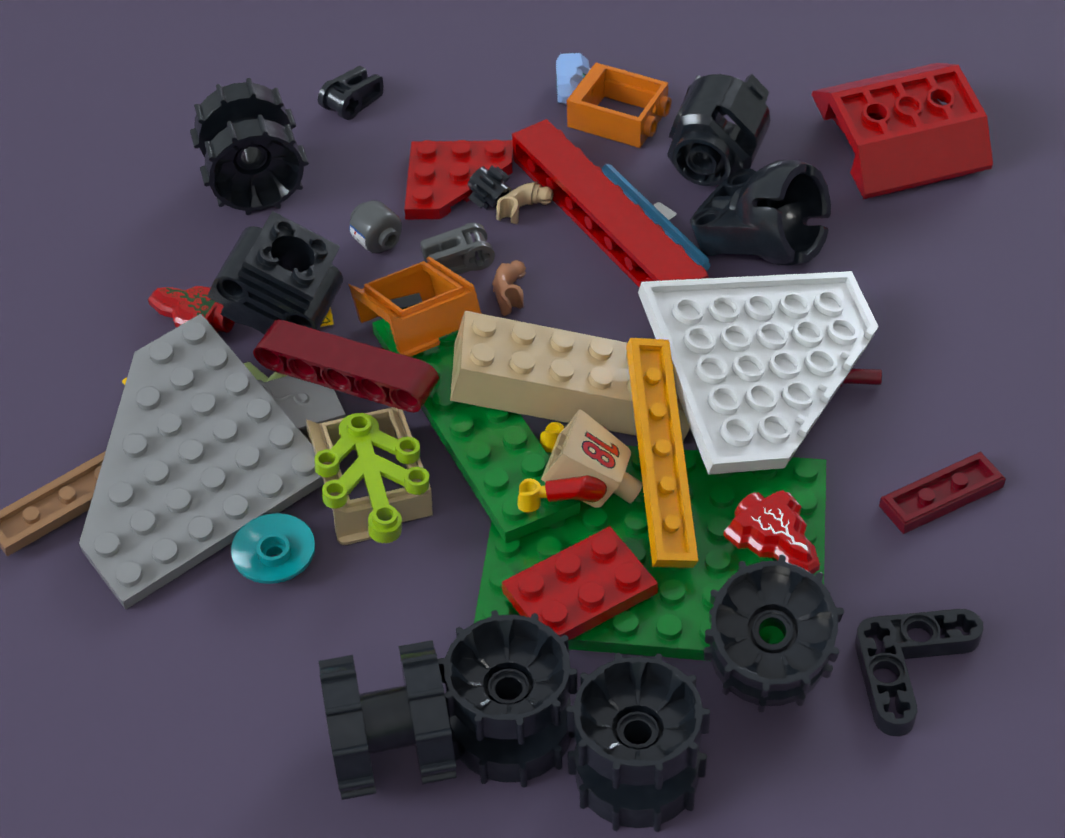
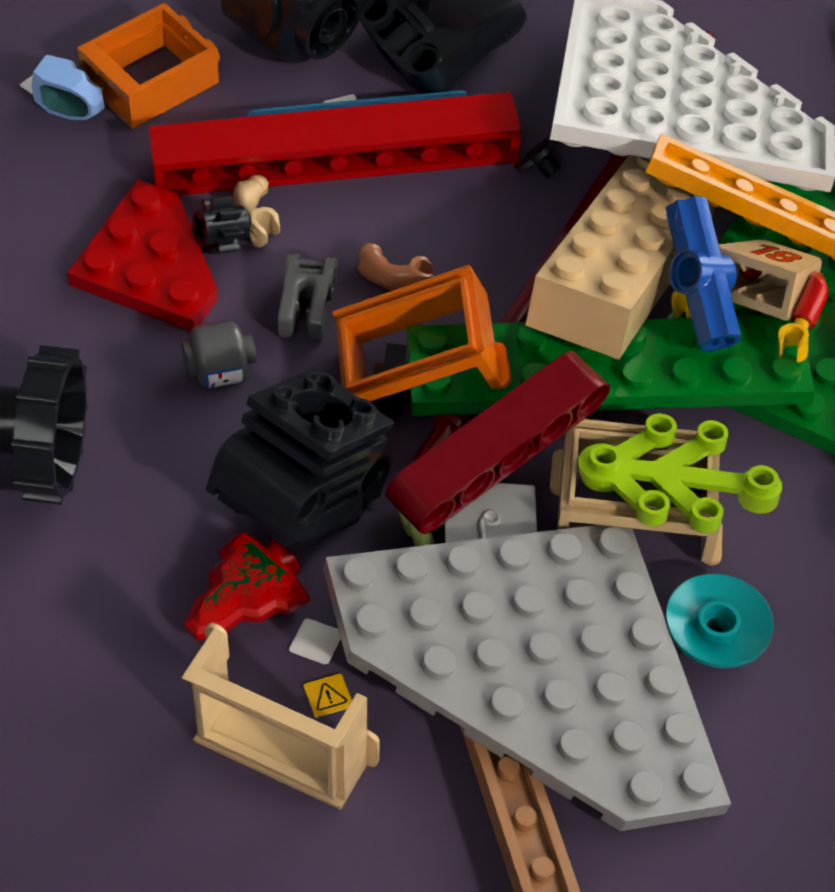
camera: 70 degrees left, 5 degrees up
(79, 372) = (273, 737): none -> tan piece
(546, 411) = (703, 274): none -> blue piece

